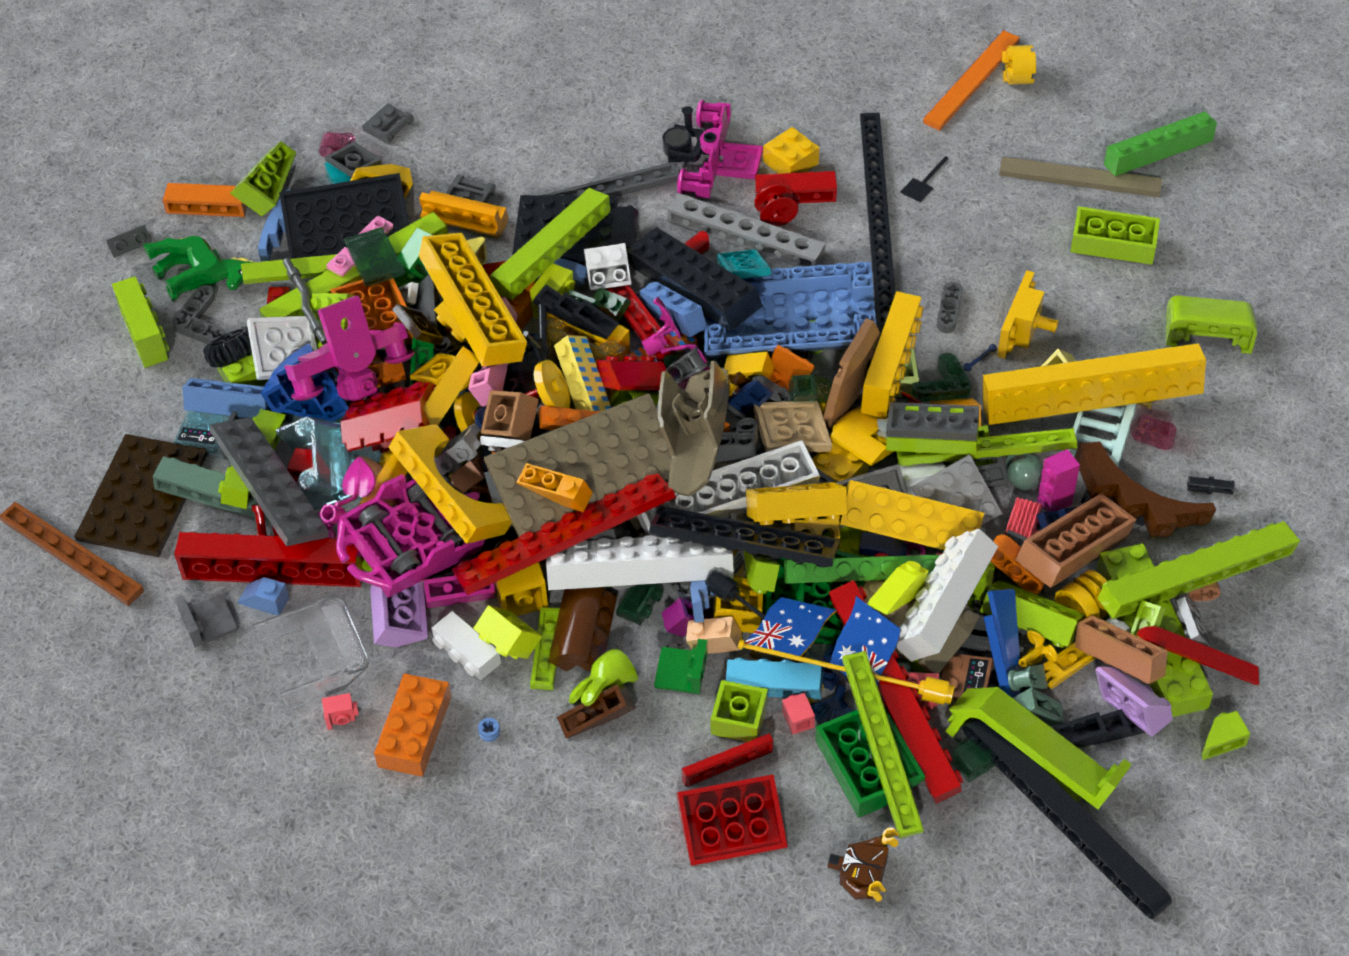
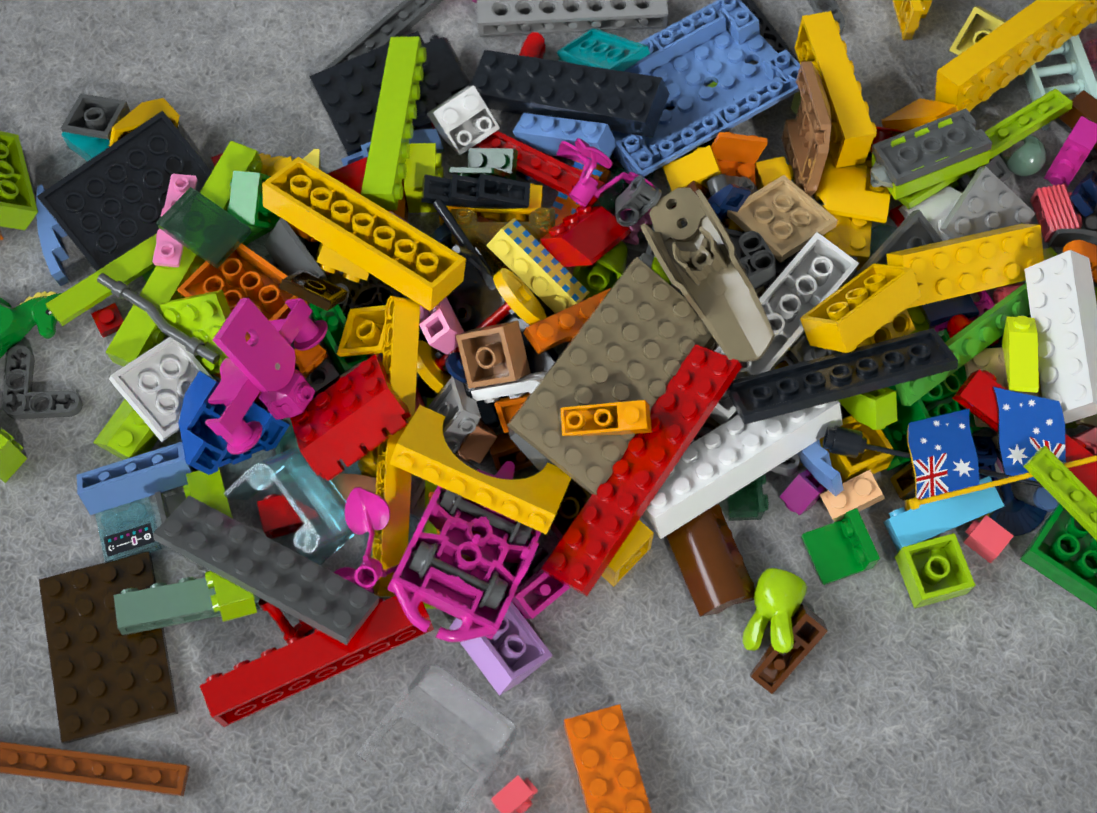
camera: 30 degrees left, 15 degrees up
(206, 619) = (289, 765): flat silver bracket -> none
(228, 348) = (98, 414): black gear -> none
(265, 596) = (335, 701): medium blue slope -> none
(334, 141) = (56, 104): clear pink piece -> none
(384, 119) = (91, 50): dark grey plate -> none
(409, 293) = (267, 250): white tile -> none
(465, 213) = (259, 124): light orange brick -> none
(465, 646) = (599, 644): white brick -> none
(471, 189) = (245, 102): dark grey plate -> none
(490, 736) = (693, 724): medium blue bush -> none
(507, 633) = (642, 609): neon yellow brick -> none
(543, 672) = (697, 629): lime tile -> none
(669, 640) = (801, 523): dark grey plant -> none
(727, 760) = (955, 631): red tile -> none
(731, 819) = (1003, 697): red slope -> none
(809, 388) = (769, 167): clear green slope -> none
(928, 390) = (896, 91): clear green beam -> none
(968, 366) = (884, 64): dark blue hinge -> none

